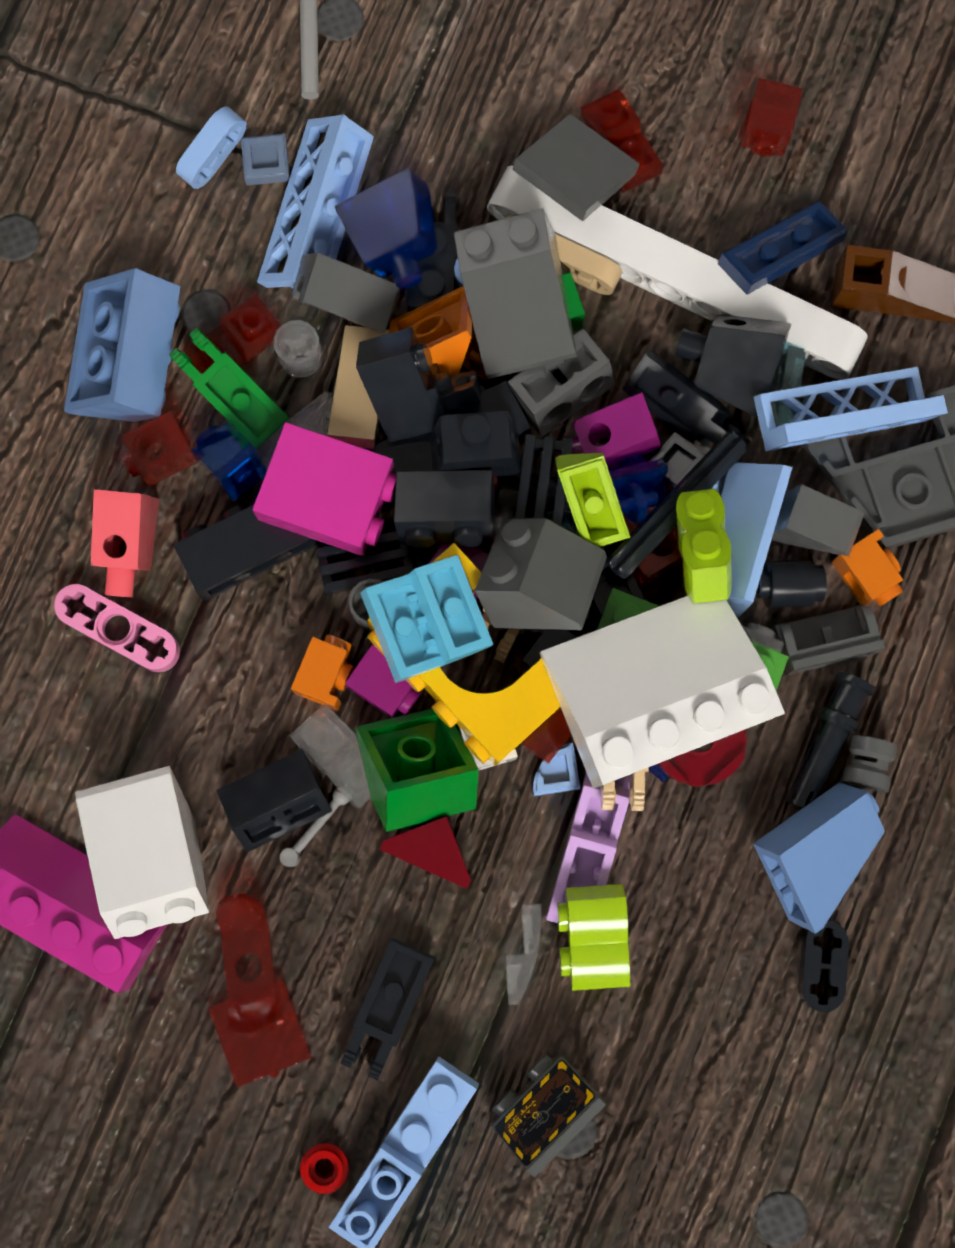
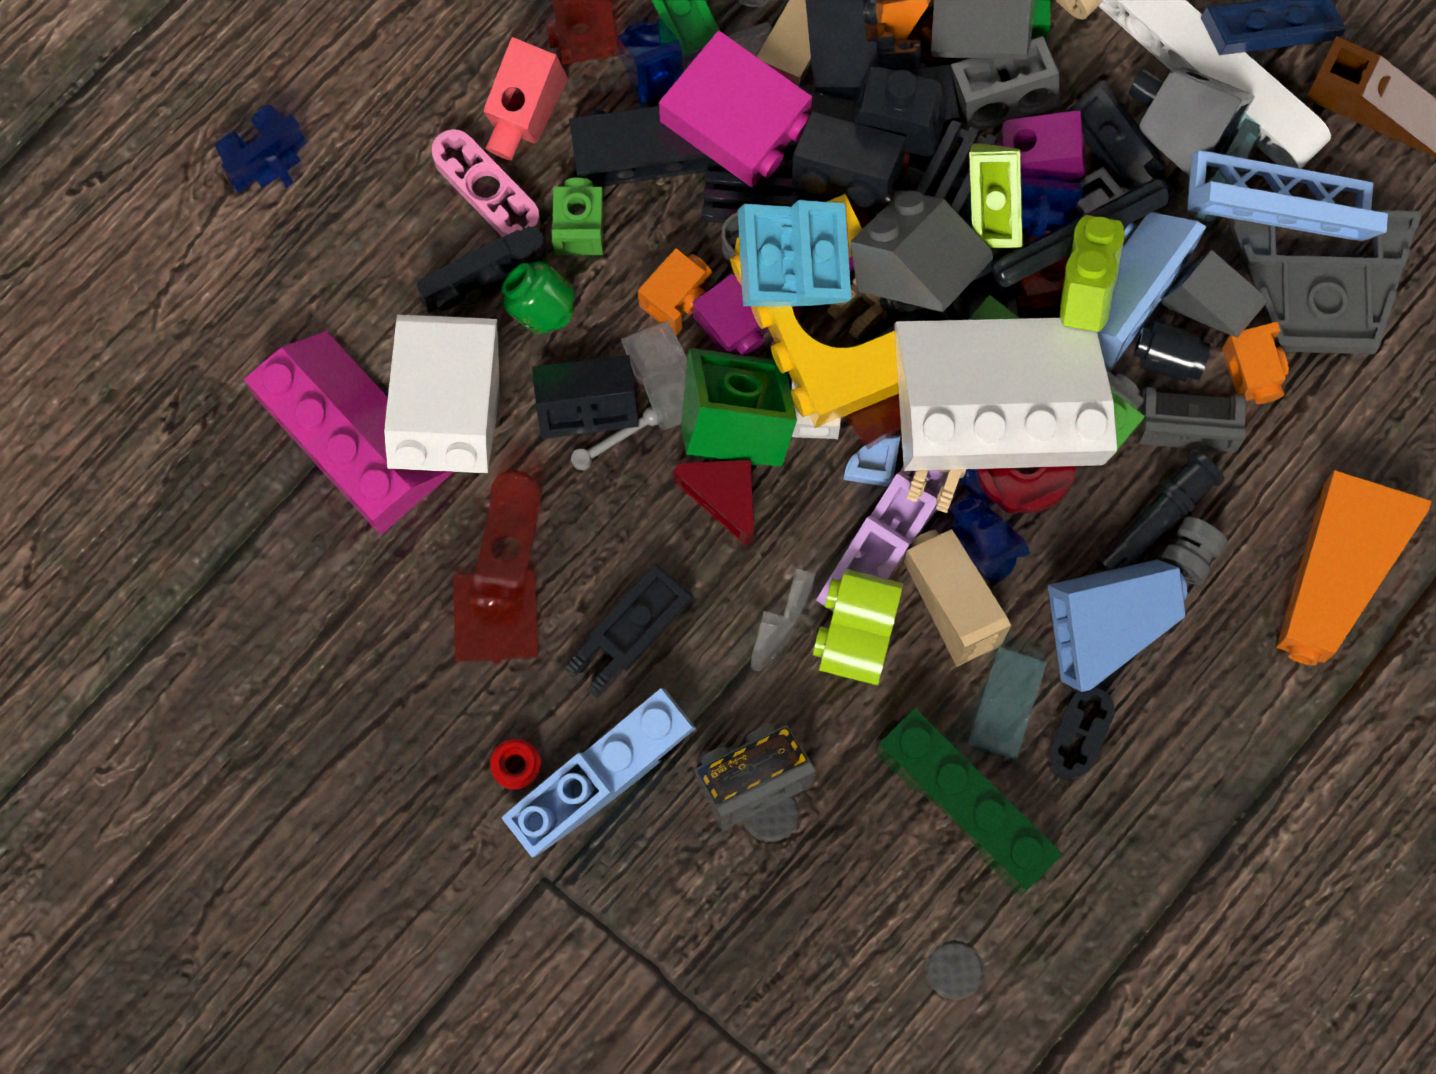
camera: 20 degrees right, 5 degrees down
(140, 708) = (481, 267): none -> black hinge
(200, 722) = (538, 297): none -> green head
(223, 644) = (582, 232): none -> bright green brick
(673, 880) = (956, 596): none -> tan slope
(682, 816) = (987, 538): none -> clear blue hips
(747, 1070) = (974, 804): none -> dark green arch
(748, 958) = (1007, 703): none -> clear light blue tile

